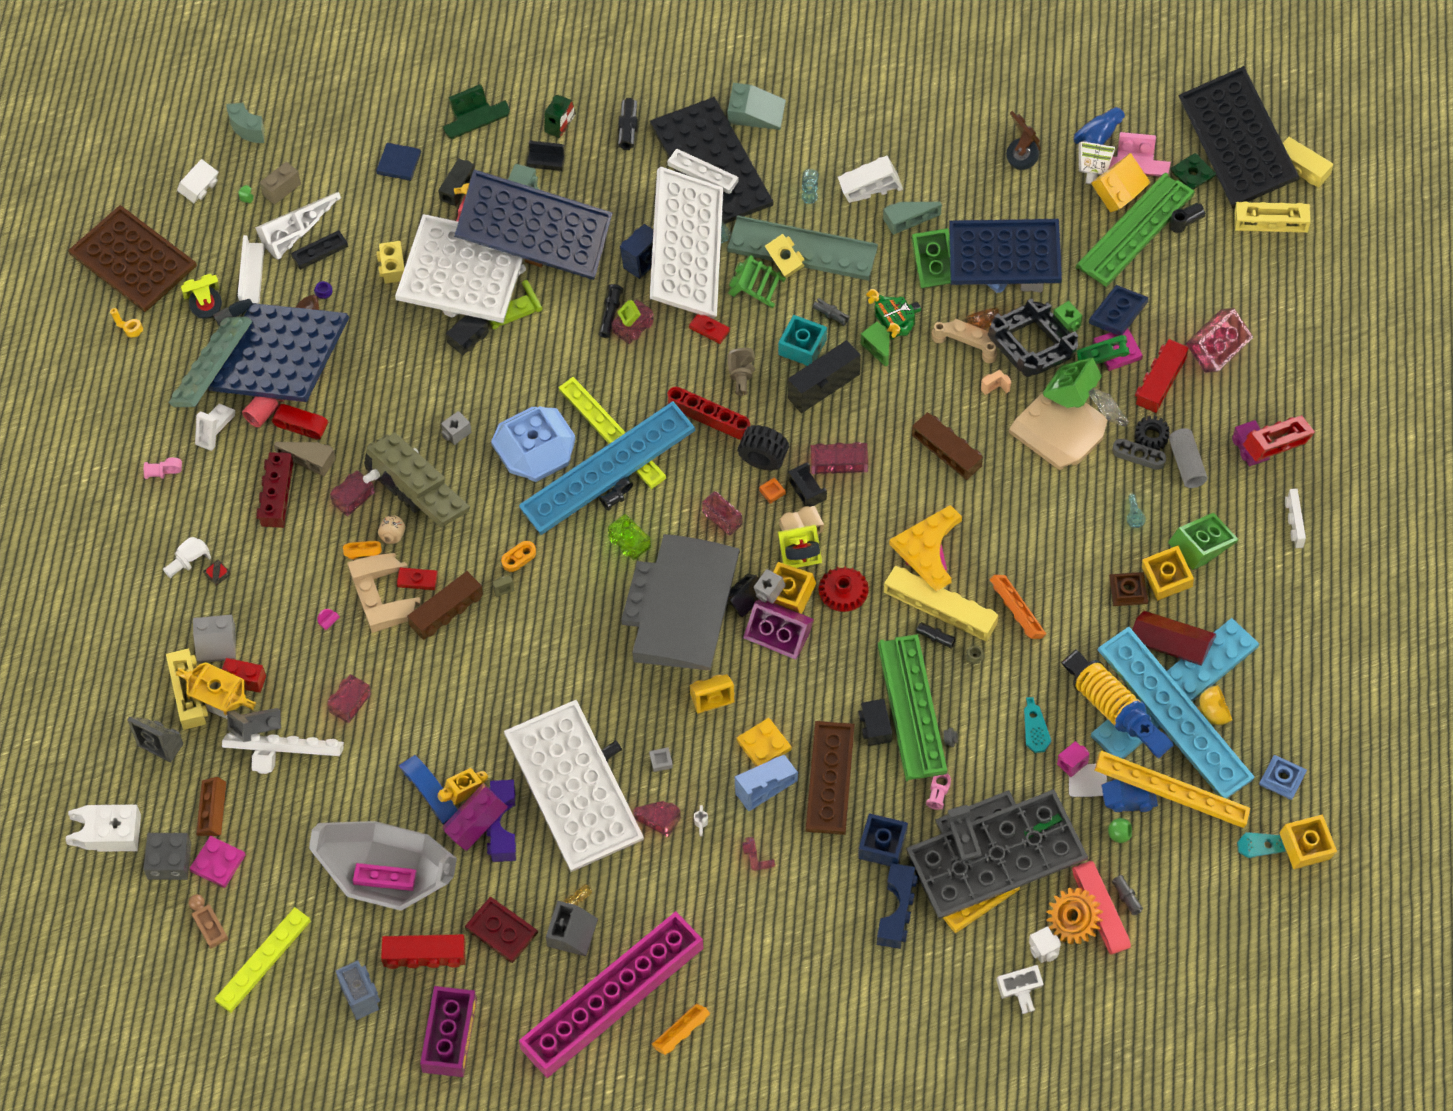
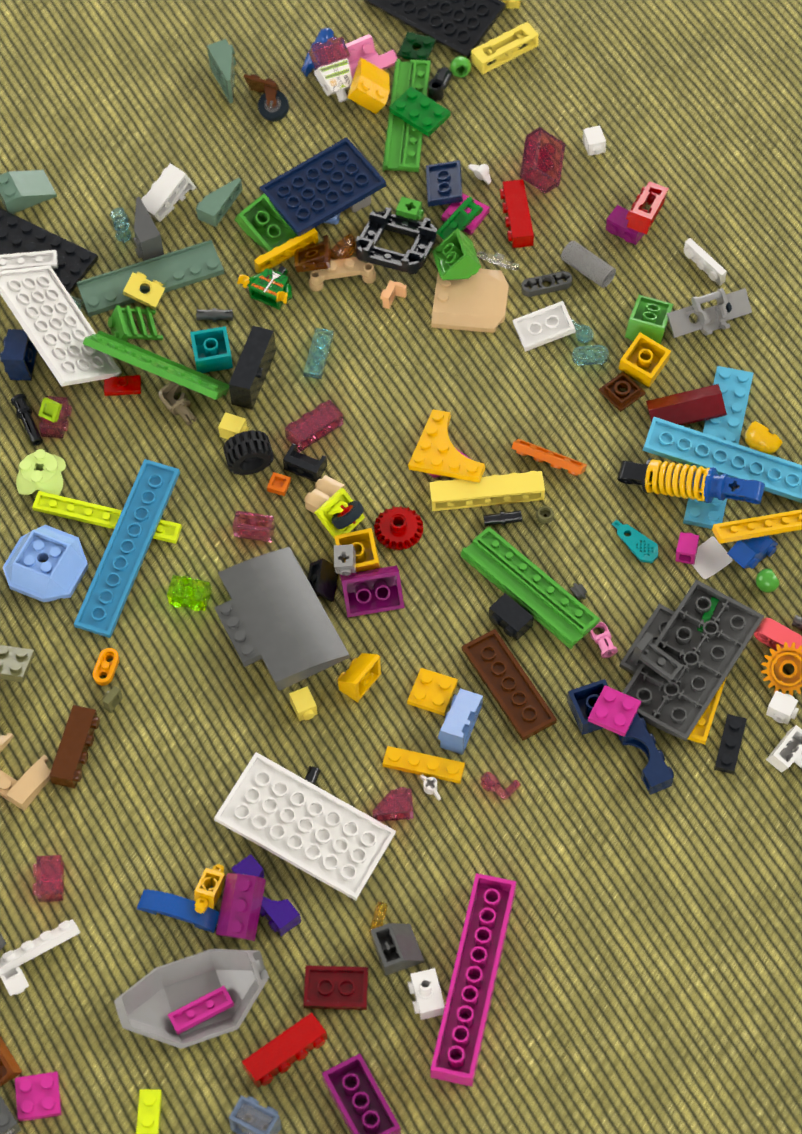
camera: 35 degrees left, 0 degrees up
(417, 578) = (30, 740): red plate -> none
(567, 980) = (427, 994): none -> white brick
(587, 372) = (47, 480): none -> yellowish green brick
(616, 495) = (150, 565): black connector -> none
(650, 686) = (303, 704): none -> light yellow brick
(661, 759) = (359, 758): light grey plate -> none
(681, 1029) = (551, 969): light orange plate -> none
(704, 406) = (184, 448): red beam -> none
(710, 798) = (423, 764): none -> yellow plate
(745, 326) = (157, 364): none -> bright green plate
(771, 417) = (232, 425): none -> light yellow brick
(822, 205) = (147, 236): none -> dark grey slope
(876, 341) = (273, 317): bright green slope -> none
(892, 397) = (318, 353): none -> clear light blue plate
(892, 854) = (614, 711): none -> dark pink plate
(933, 291) = (284, 251): none -> yellow plate
(947, 445) = (393, 364): reddish brown brick -> none
(951, 310) = (313, 256): none -> reddish brown wing
(977, 947) = (730, 744): none -> black plate
(1007, 91) = (222, 66): none -> sand green slope
(1102, 132) = (328, 52): none -> clear pink brick
(1105, 490) = (544, 326): none -> white tile
(1126, 540) = (590, 355): none -> clear light blue plate
(1146, 232) = (419, 111): none -> green plate
(1152, 424) = (544, 254): black tyre -> none
(1160, 319) = (481, 172): none -> white piece
(1217, 212) = (460, 66): none -> bright green piece
(1259, 572) = (711, 318): none -> light grey piece
(1285, 349) = (594, 140): none -> white brick

